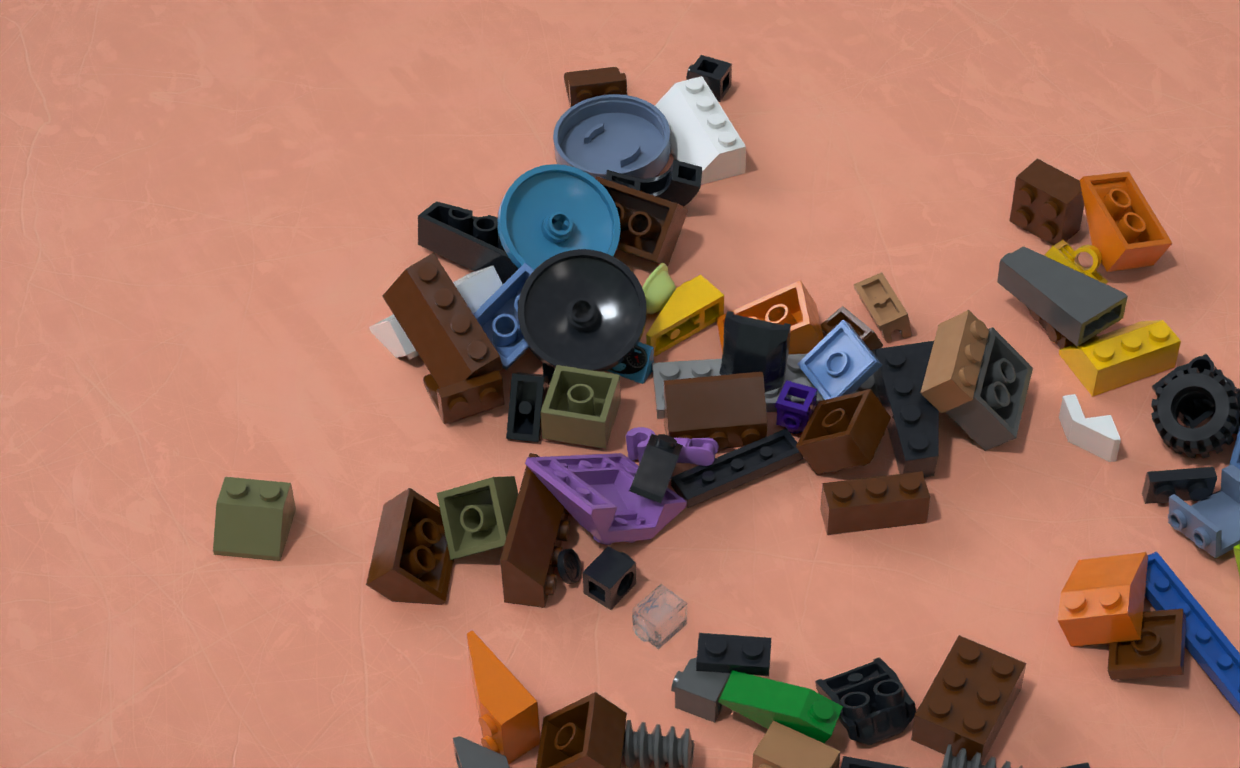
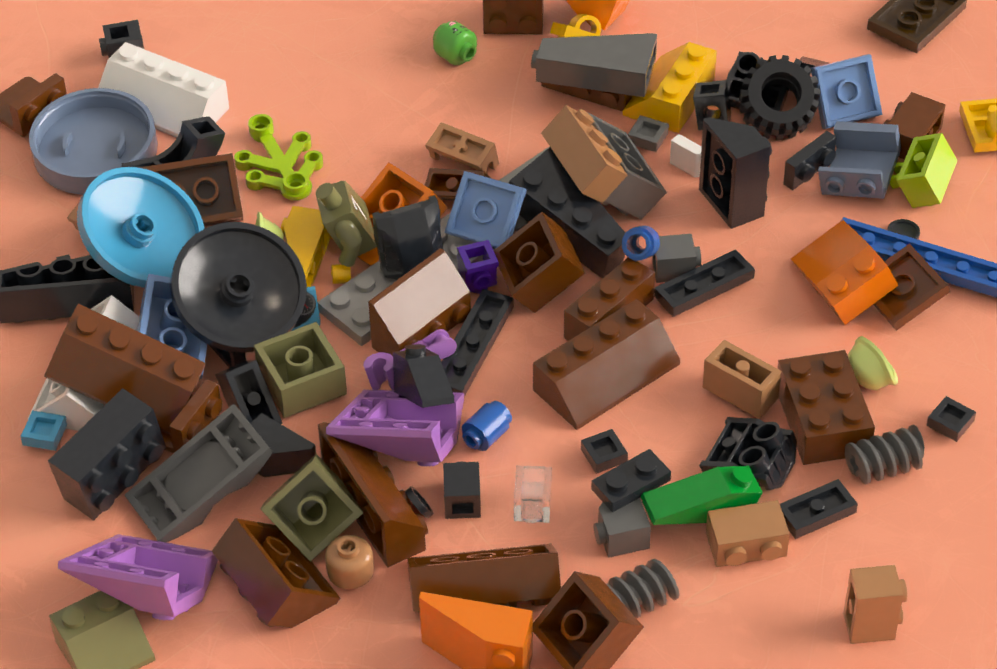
camera: 40 degrees left, 0 degrees up
(317, 488) = (145, 573): none -> medium lavender slope
(367, 341) = (44, 430): none -> dark azure plate
(378, 384) = (108, 454): none -> black brick
(430, 442) = (199, 475): none -> dark grey slope
(470, 577) = (349, 562): none -> medium nougat head
(502, 451) = (288, 447): none -> black slope
(555, 654) = (489, 575): none -> reddish brown slope
(679, 539) = (486, 425): none -> blue brick
(718, 295) = (348, 224): none -> olive torso
(731, 260) = (292, 184): none -> lime plant
(751, 618) = (604, 451): none -> black plate
(823, 550) = (605, 364): none -> reddish brown slope
(918, 632) = (741, 379): none -> medium nougat brick
(937, 465) = (631, 245): none -> blue brick
(969, 213) = (454, 43): none -> bright green head
(971, 498) = (675, 257): none -> dark grey brick
(977, 534) = (704, 282): none -> black plate
(1048, 694) = (871, 365): none -> yellowish green helmet
(1058, 380) = (648, 133): none -> dark grey plate
(1085, 454) = (734, 170): none -> black slope
(1133, 387) = (711, 94): none -> black brick
(1210, 598) = (905, 227): none -> black piece

